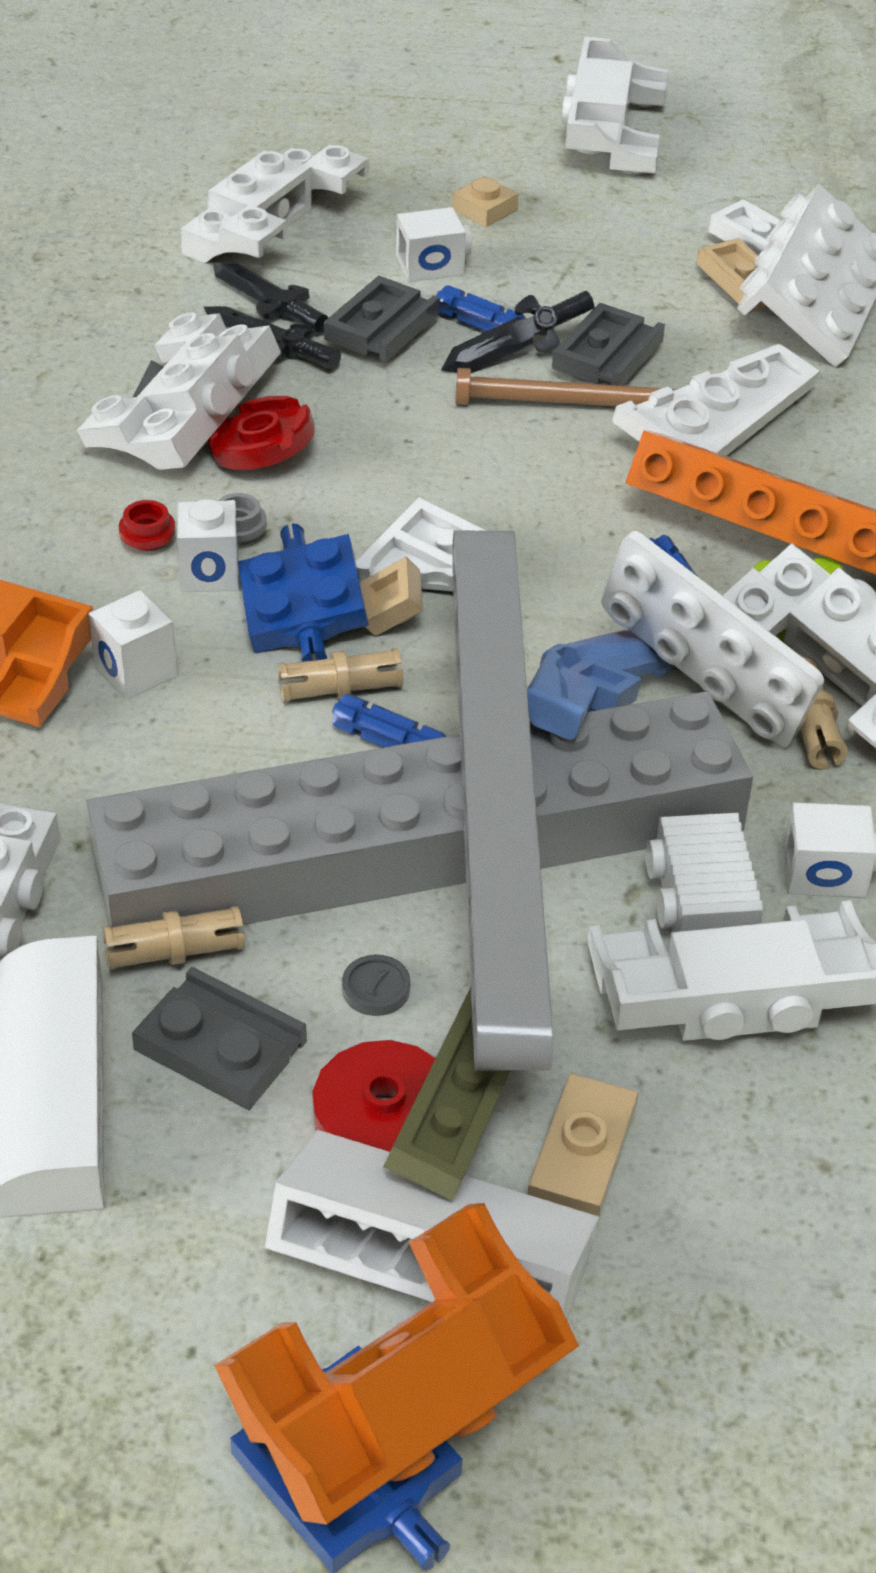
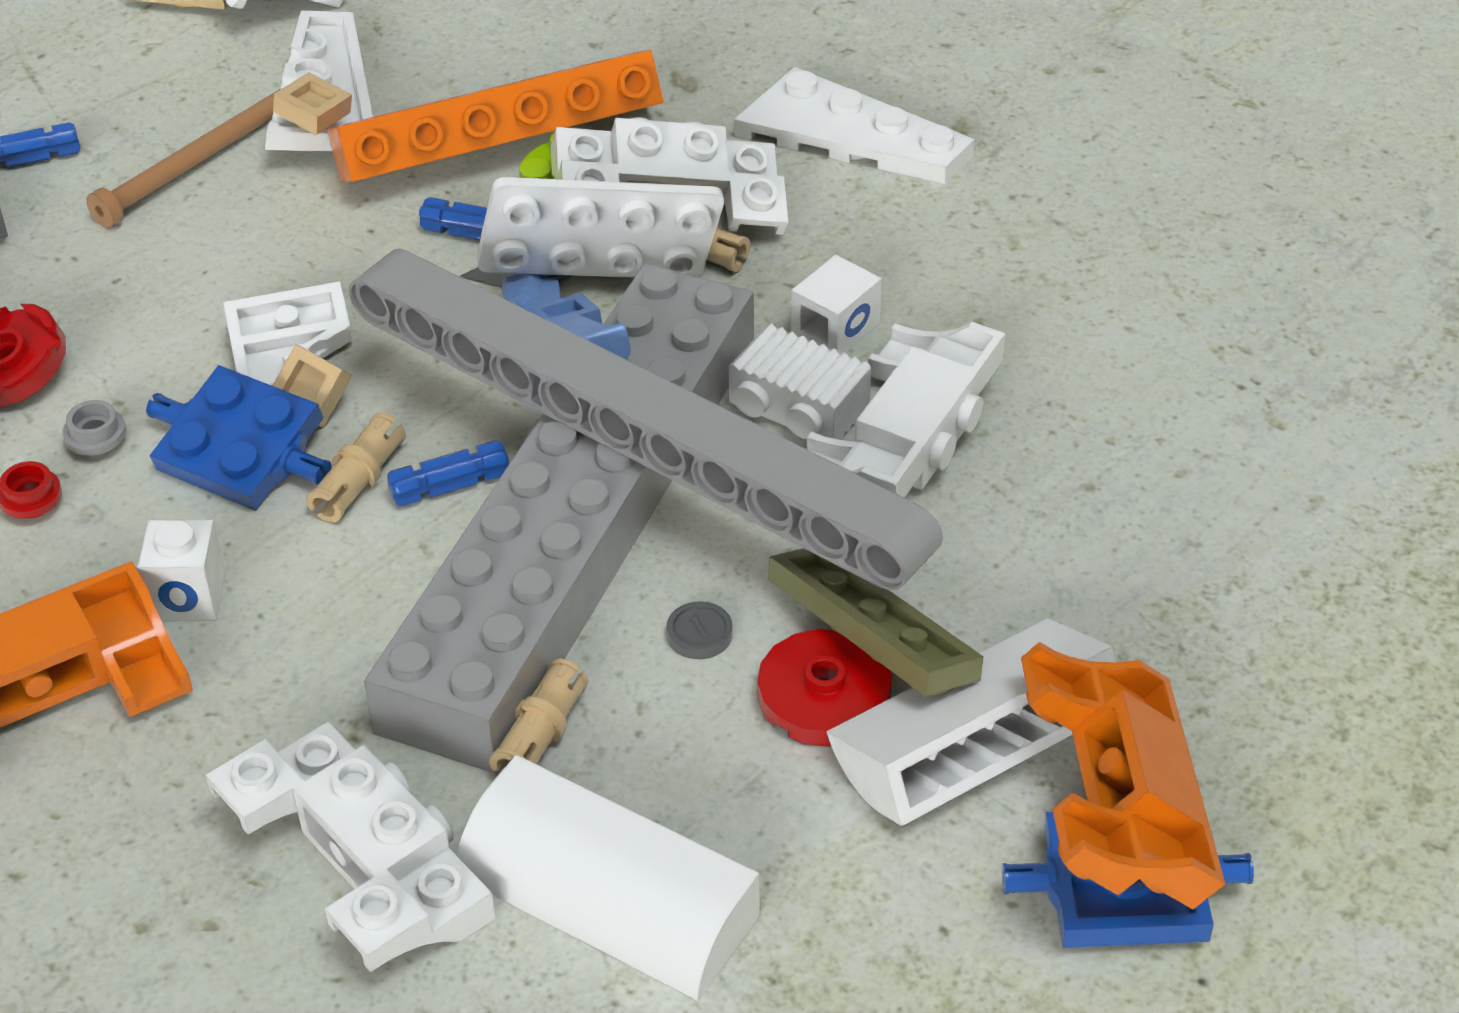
camera: 50 degrees left, 0 degrees up
(207, 545) = (117, 460): white brick -> none
(219, 1038) = (664, 750): dark grey plate -> none
(518, 333) = (85, 140): black sword -> none
(583, 1144) = (968, 598): tan plate -> none
(607, 346) = (168, 102): dark grey plate -> none
(668, 406) = (312, 103): none -> tan plate

